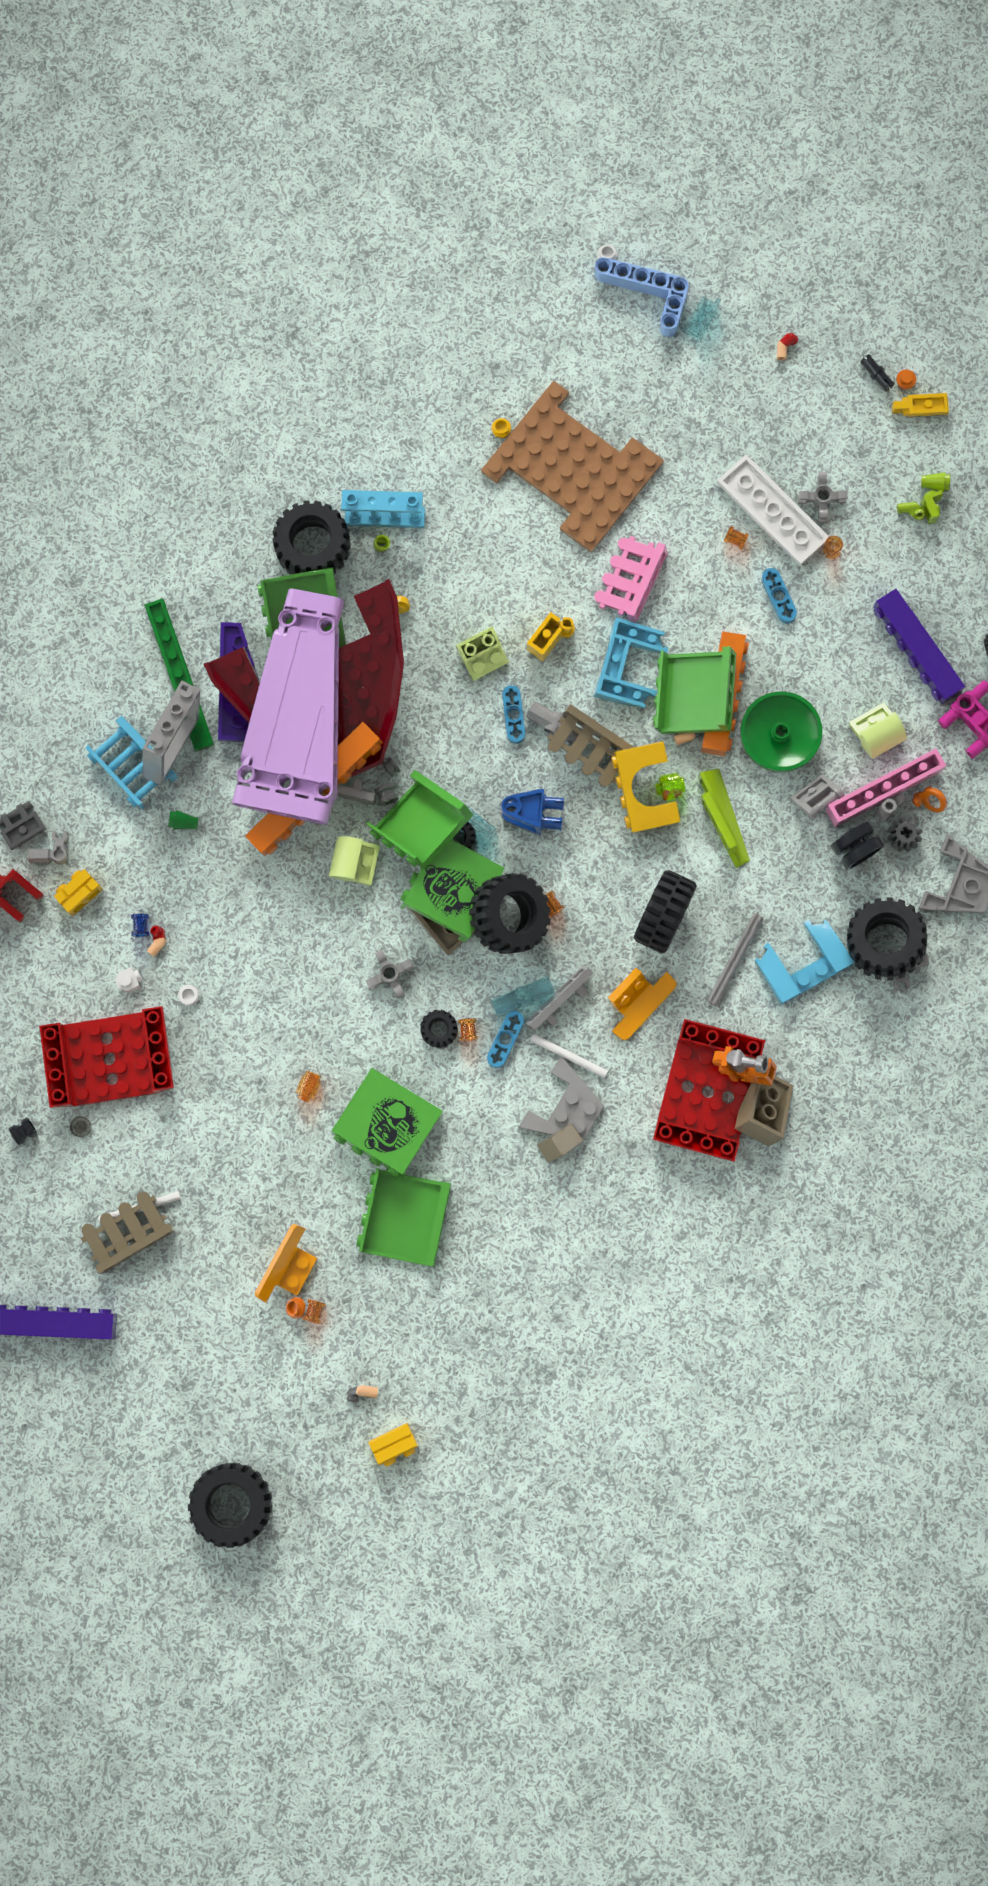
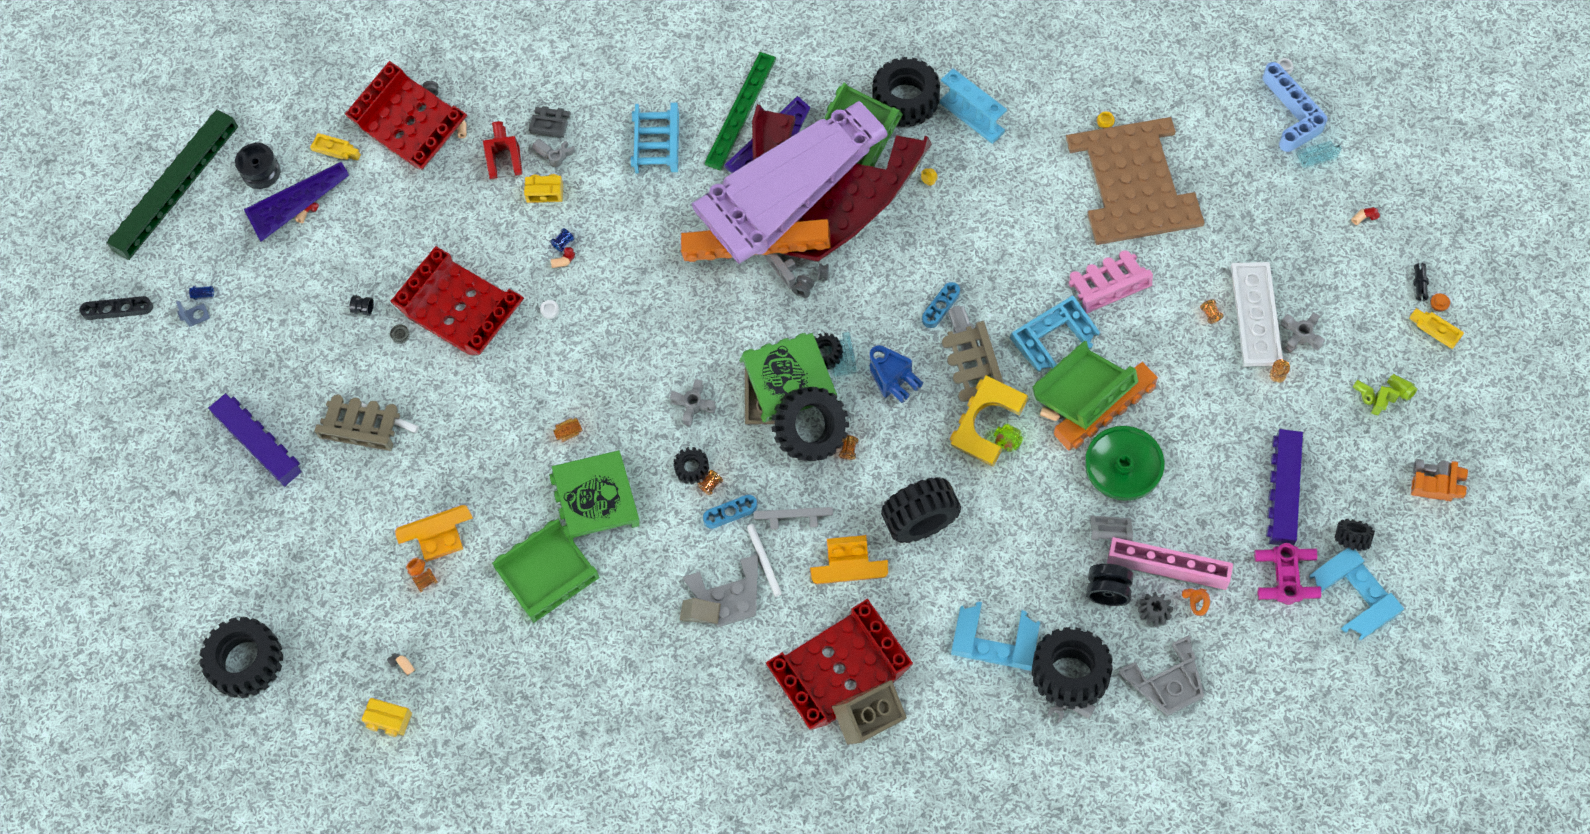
camera: 40 degrees right, 15 degrees down
(128, 980) = (521, 267): white plate -> none
(171, 732) = (698, 142): light grey window -> none
(180, 820) = (653, 198): green cone -> none
(354, 860) = (740, 310): yellowish green brick -> none
(381, 539) = (954, 127): lime hinge -> none
(421, 822) = (807, 318): bright green panel -> none
(482, 653) = (955, 247): yellowish green brick -> none
(535, 991) = (757, 488): clear light blue piece -> none
(549, 634) = (1013, 270): yellow hinge -> none
(722, 815) = (1030, 484): lime wedge -> none
(735, 959) = (946, 593): light grey axle -> none
(746, 1069) = (882, 672): hips -> none
(782, 588) = (1210, 381): dark azure beam -> none
(878, 730) = (1201, 521): yellowish green brick -> none
(890, 807) = (1157, 581): light grey bar -> none

